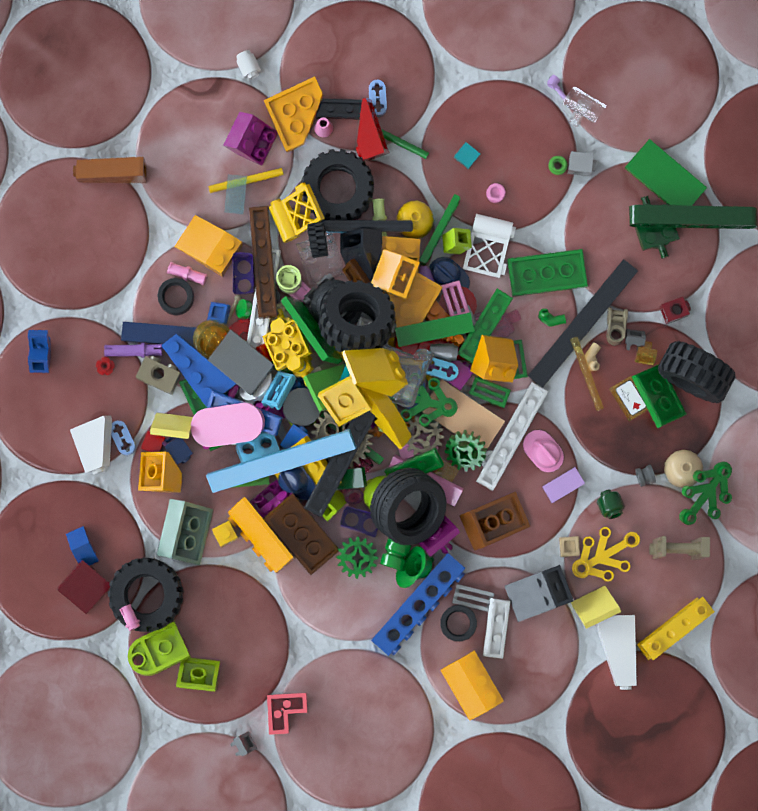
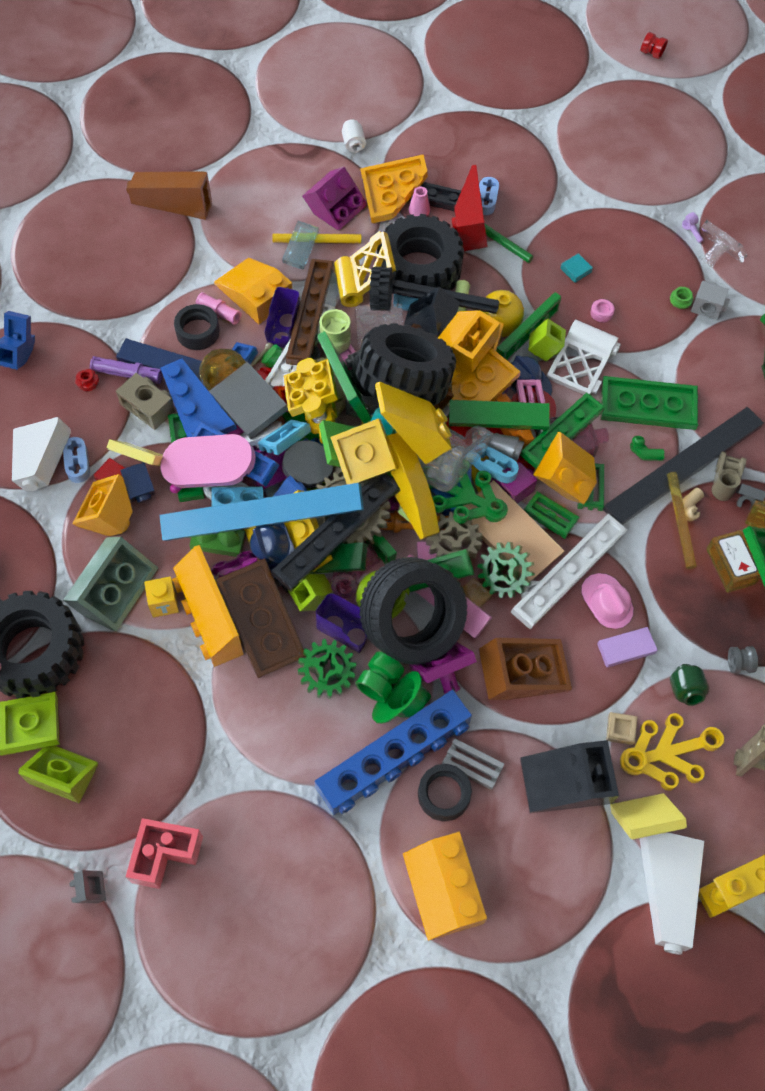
camera: 15 degrees right, 20 degrees down
(496, 628) = (497, 814): white tile -> none

